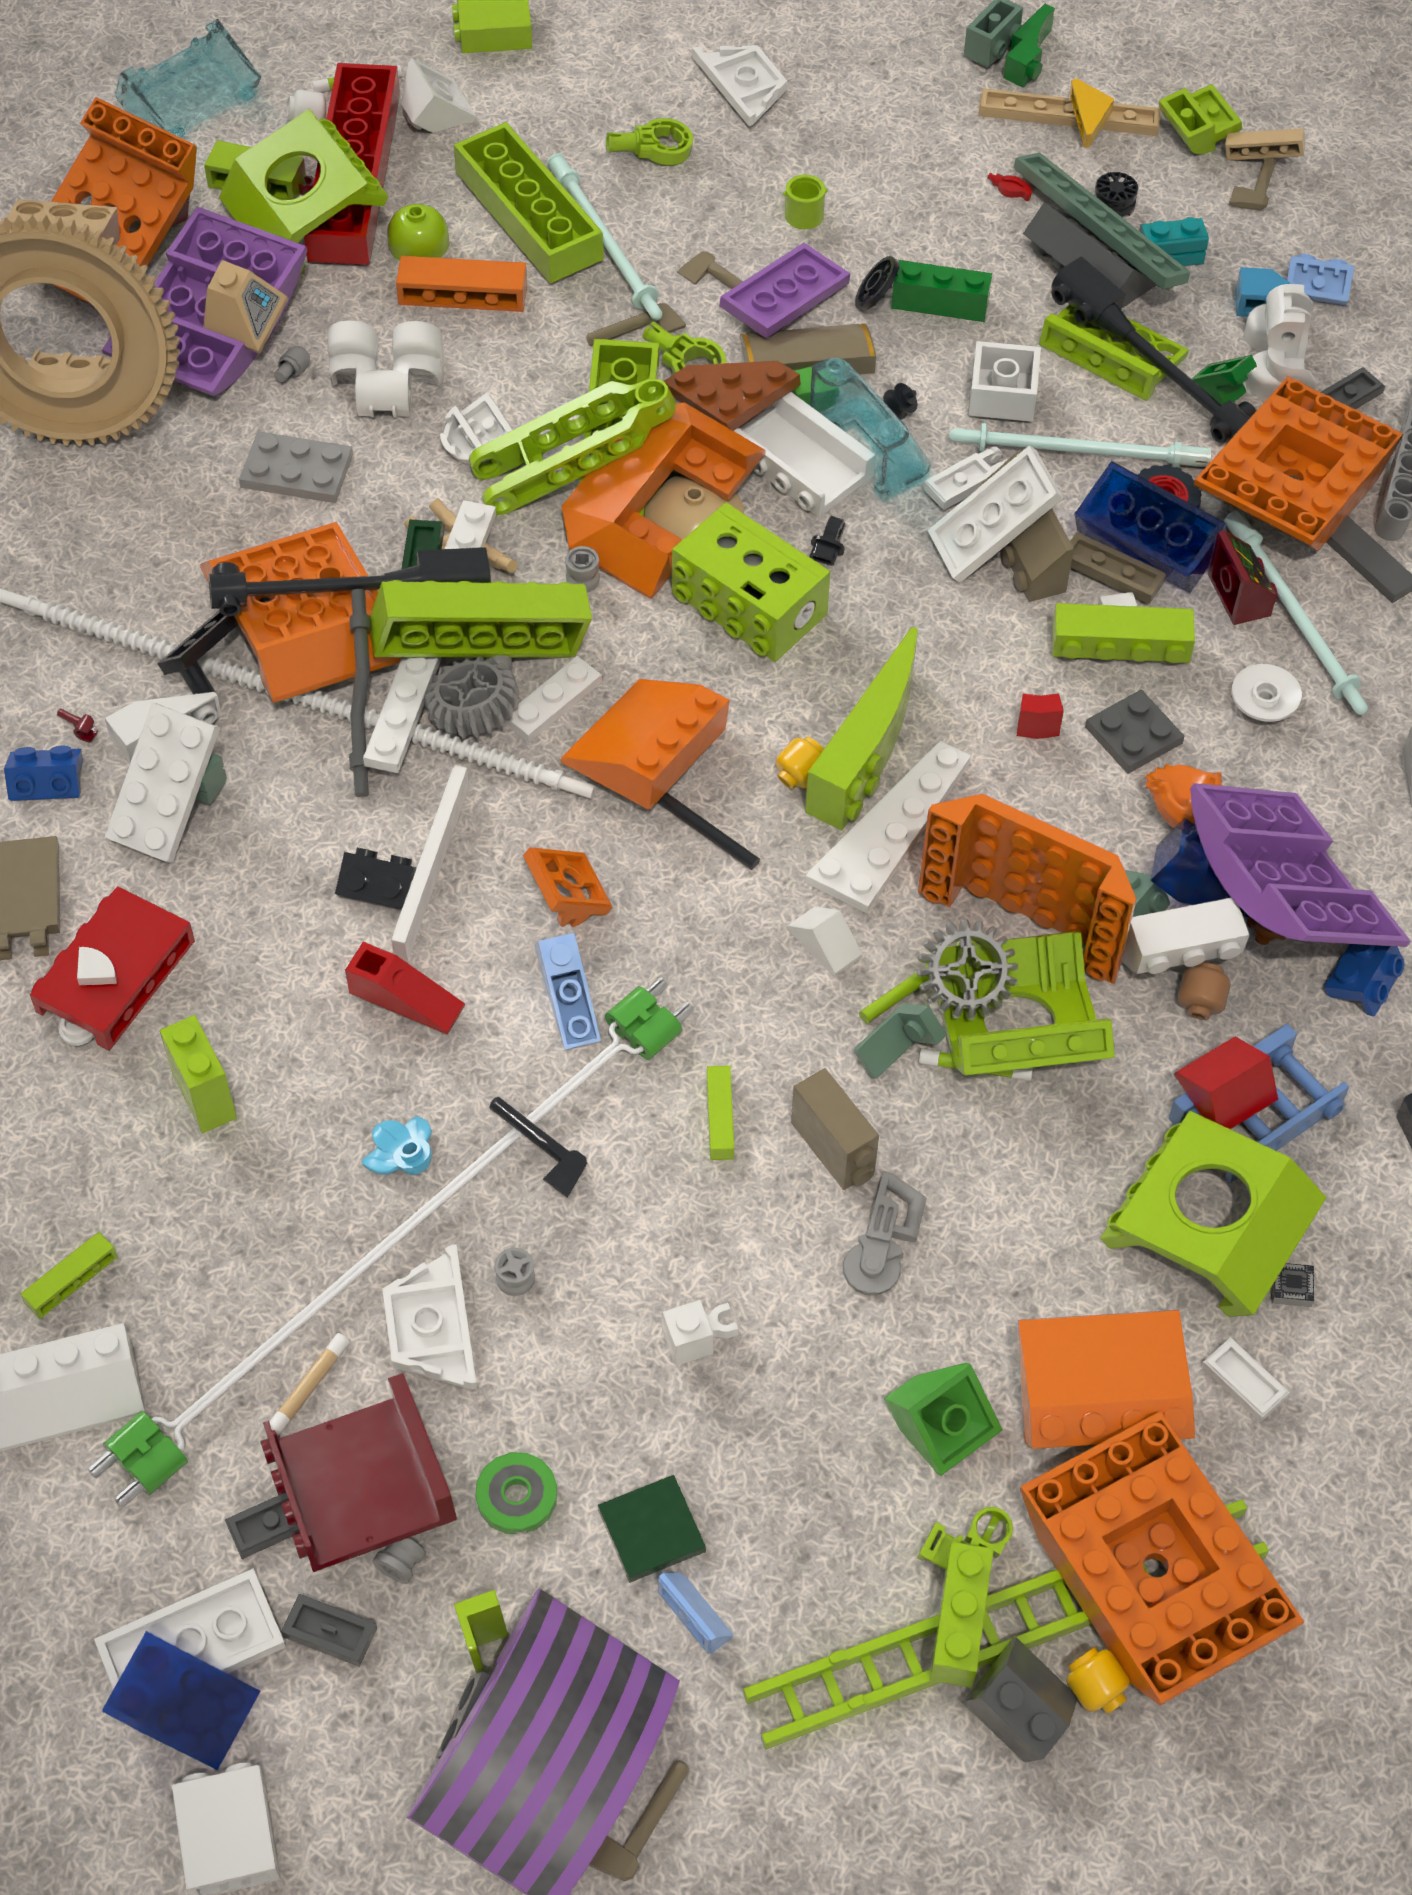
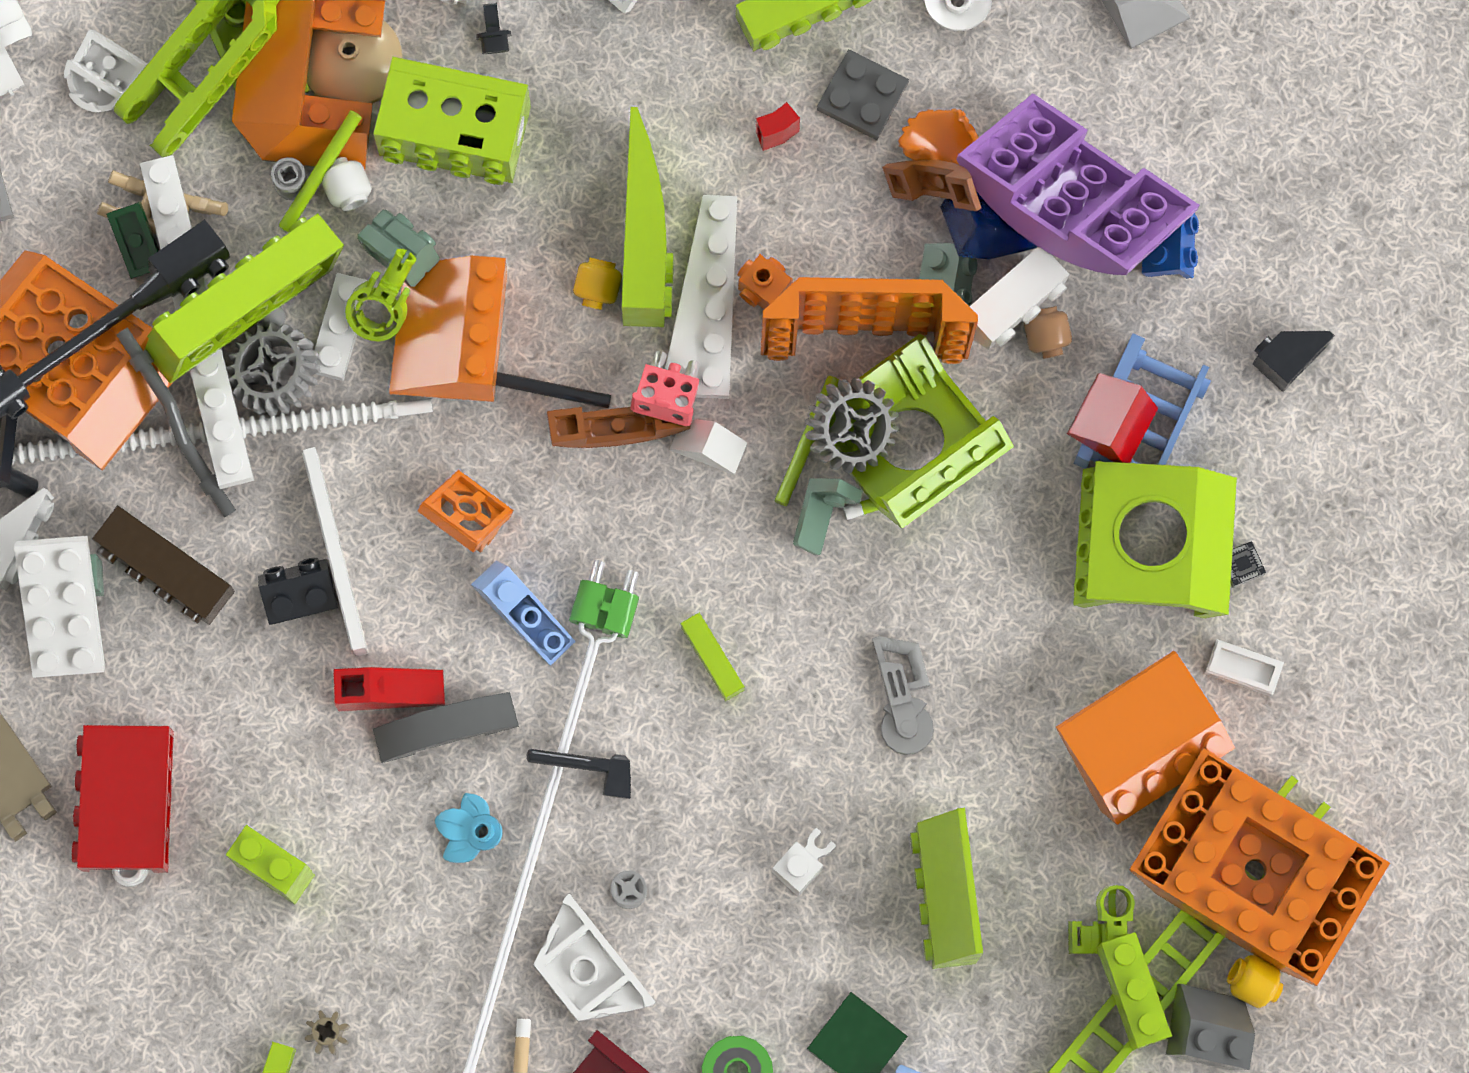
camera: 30 degrees left, 20 degrees up
(94, 968) = (118, 815): white tile -> none
(153, 1261) = (329, 1042): none -> dark tan gear
(275, 802) = (162, 565): none -> dark brown brick
(438, 1047) = (445, 725): none -> dark grey slope
(611, 676) = (384, 293): none -> lime pin
(625, 558) = (318, 173): none -> lime bar
(628, 592) = (346, 184): none -> white head
(642, 655) = (395, 232): none -> sand green brick
(747, 884) = (606, 428): none -> dark orange slope
(809, 868) = (667, 392): none -> coral piece
(824, 1423) = (948, 890): none -> lime slope
(835, 1129) = (820, 630): dark tan brick -> none
(944, 1415) = (1032, 829): bright green slope -> none
(1156, 808) = (932, 178): none -> dark orange slope

